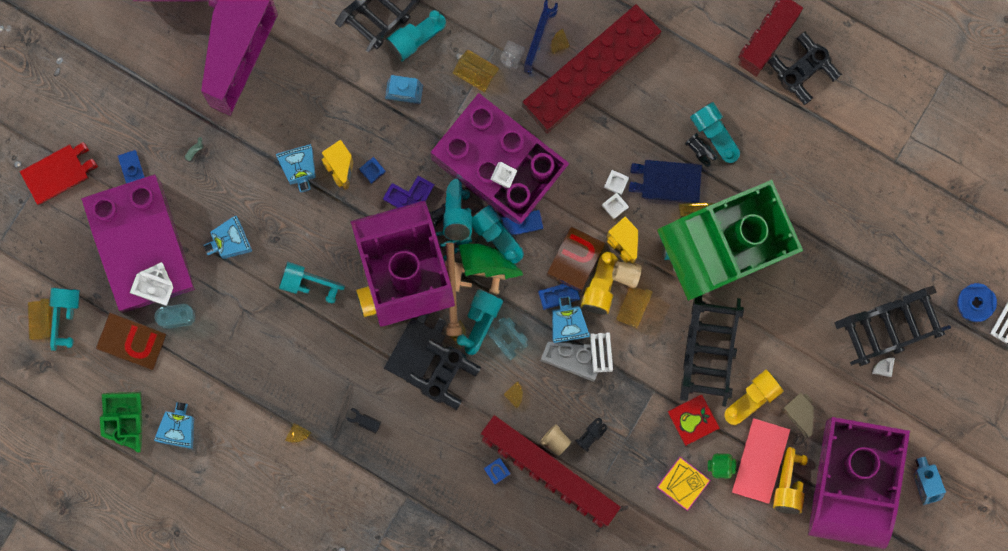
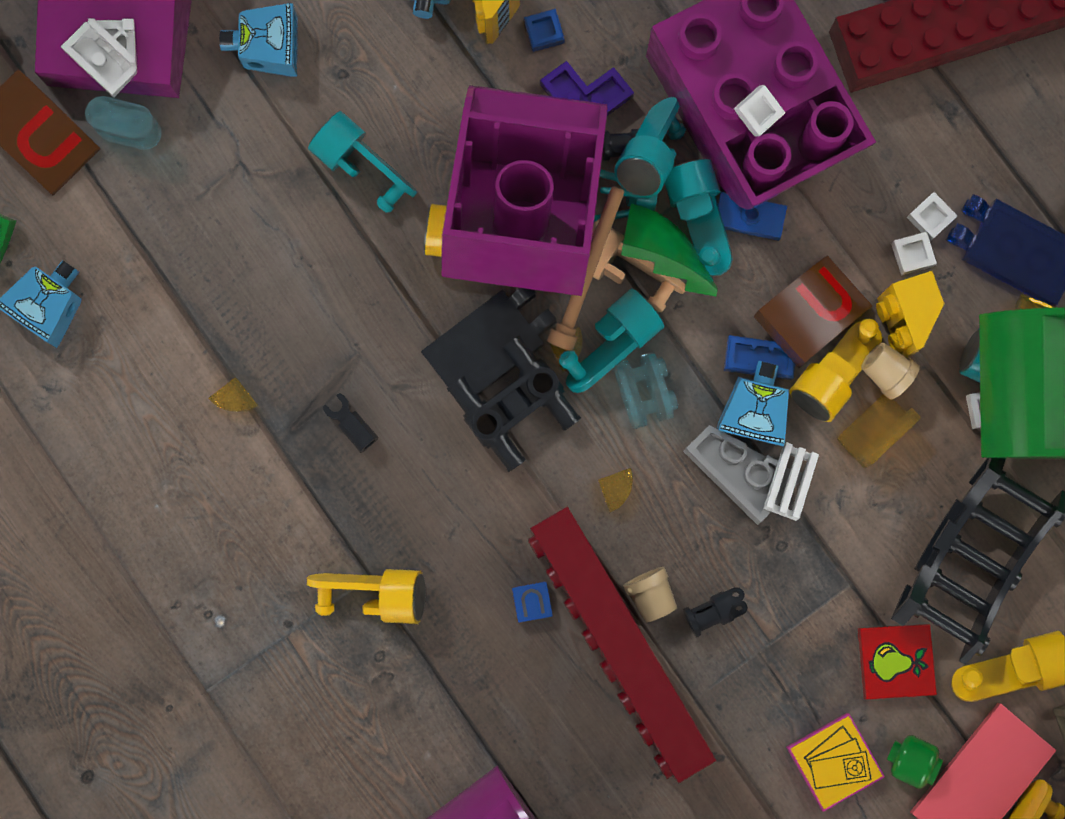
camera: 25 degrees right, 0 degrees up
(429, 497) = (400, 593): none -> yellow piece

